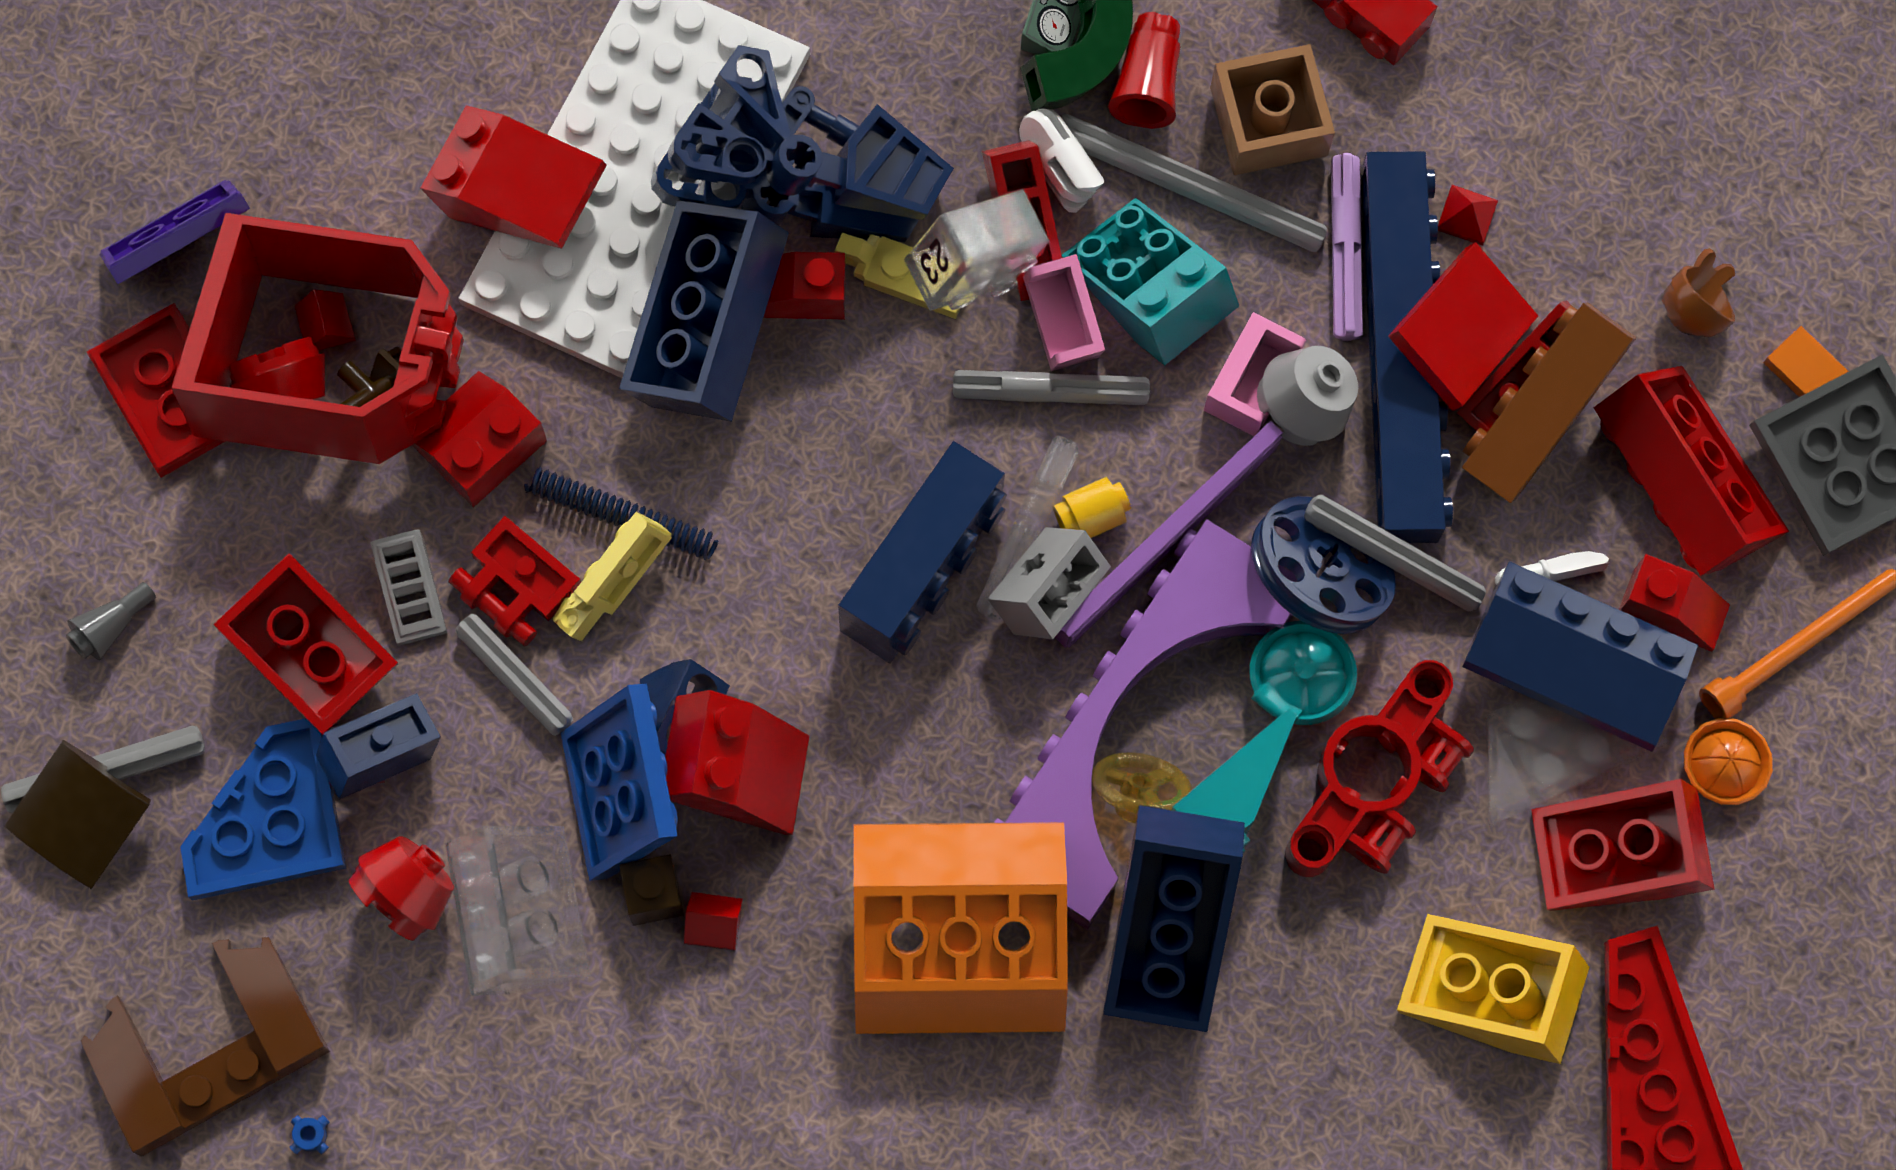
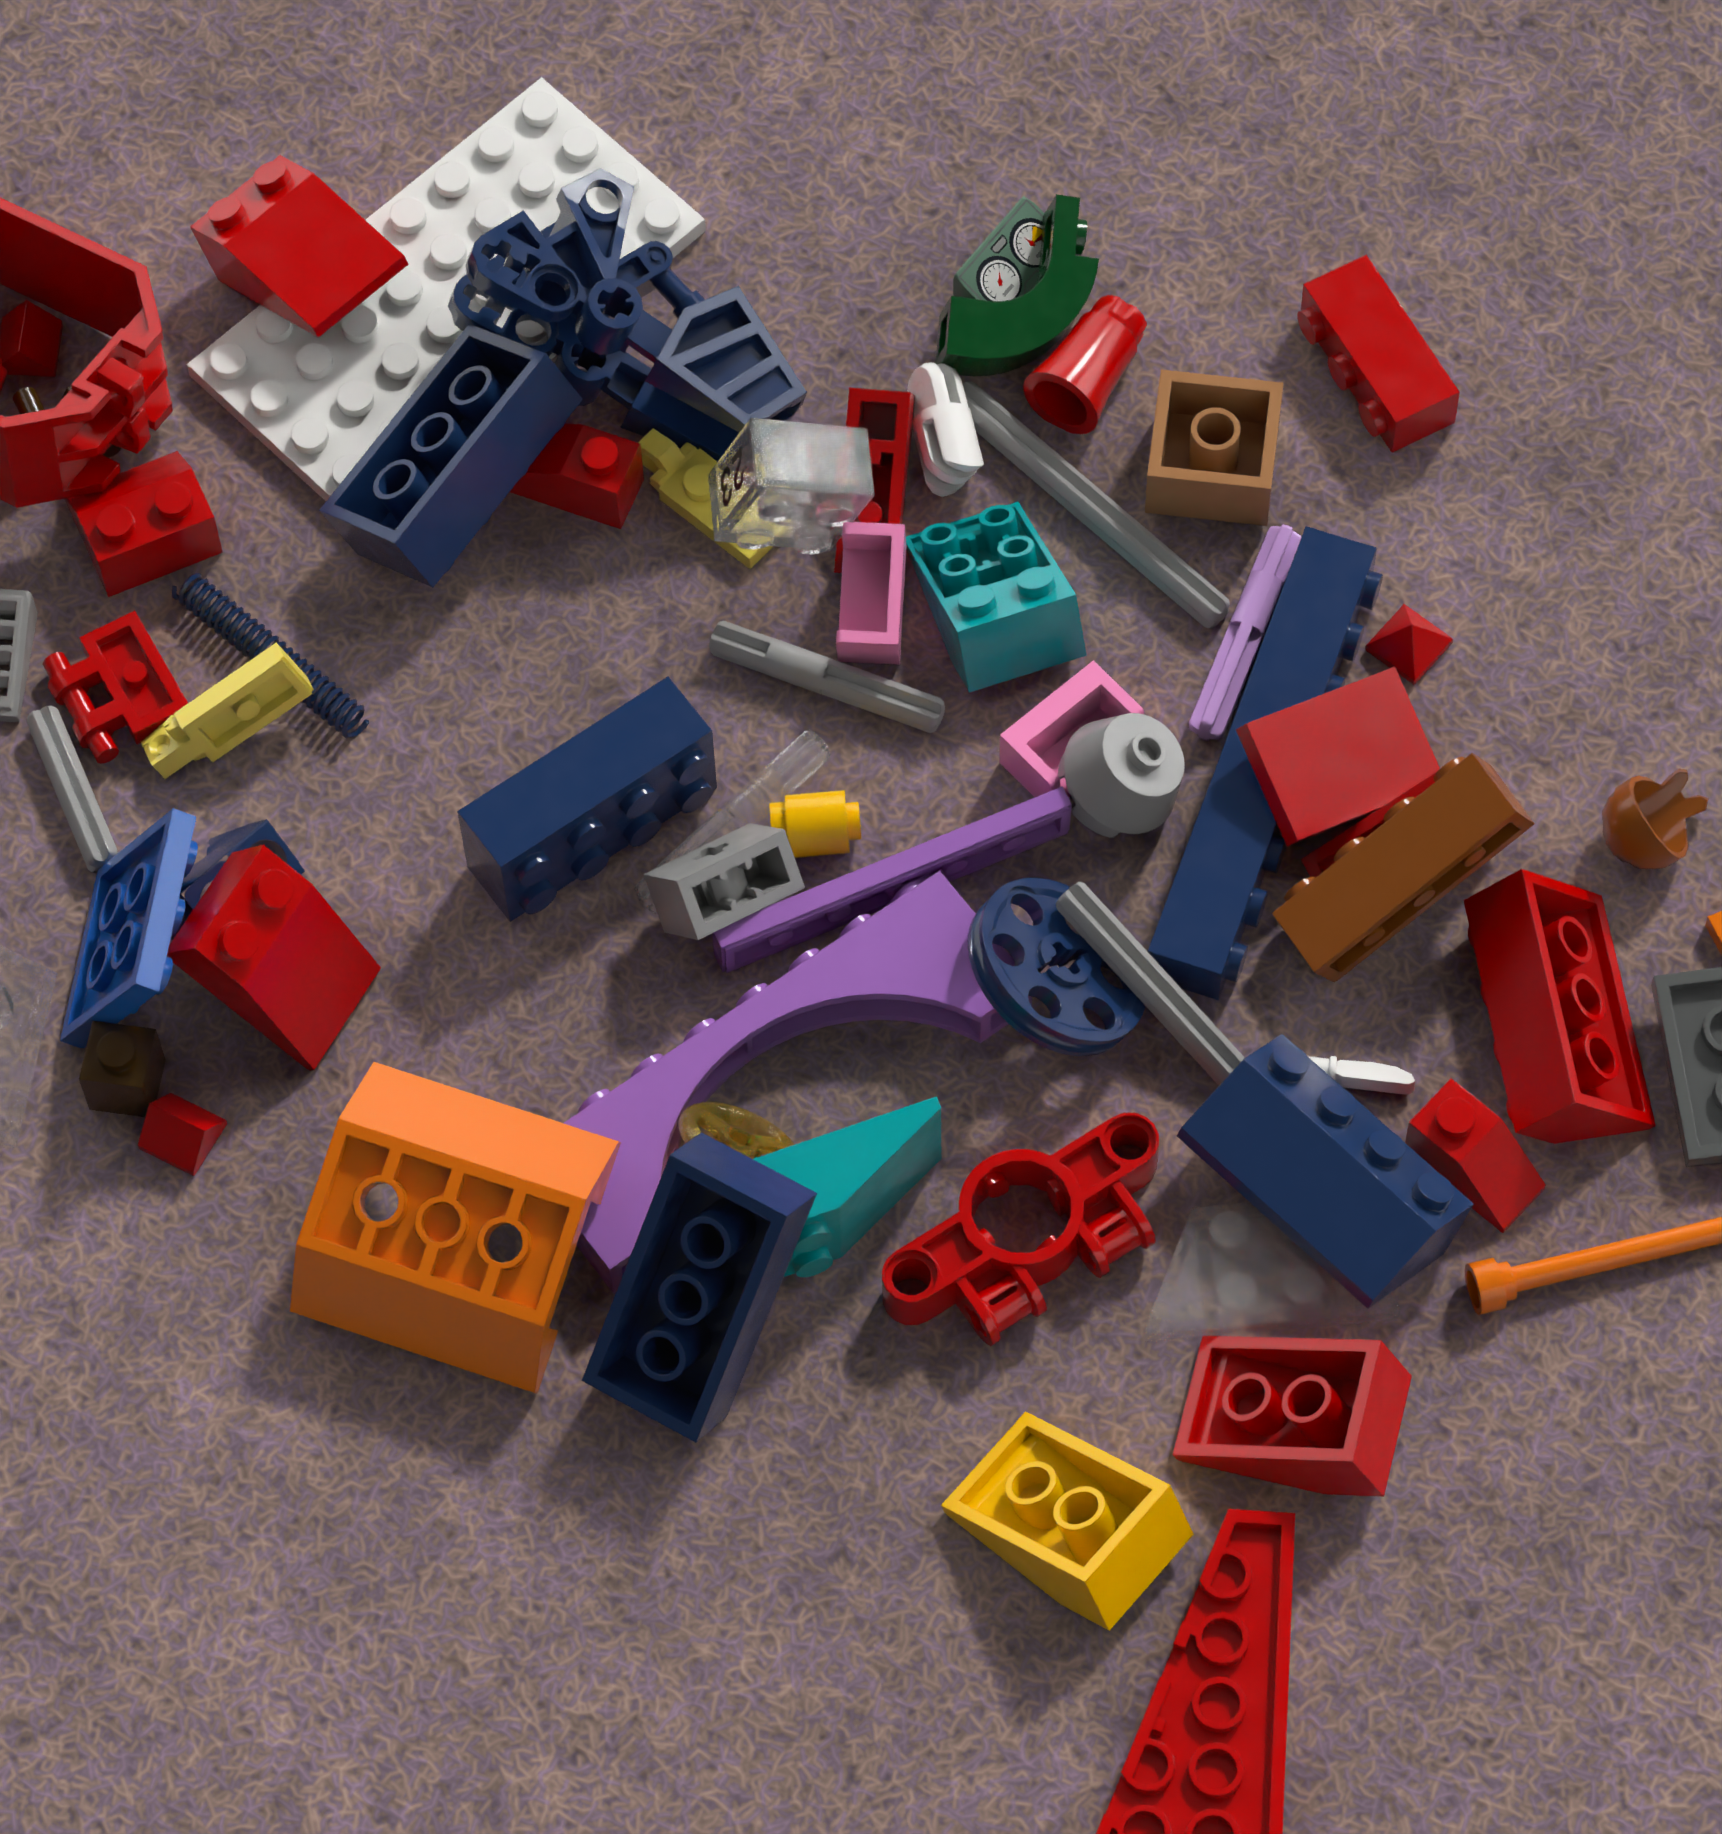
camera: 25 degrees right, 10 degrees down
(1303, 671) = (988, 1084): teal piece -> none
(1728, 761) = (1463, 1358): orange hat -> none

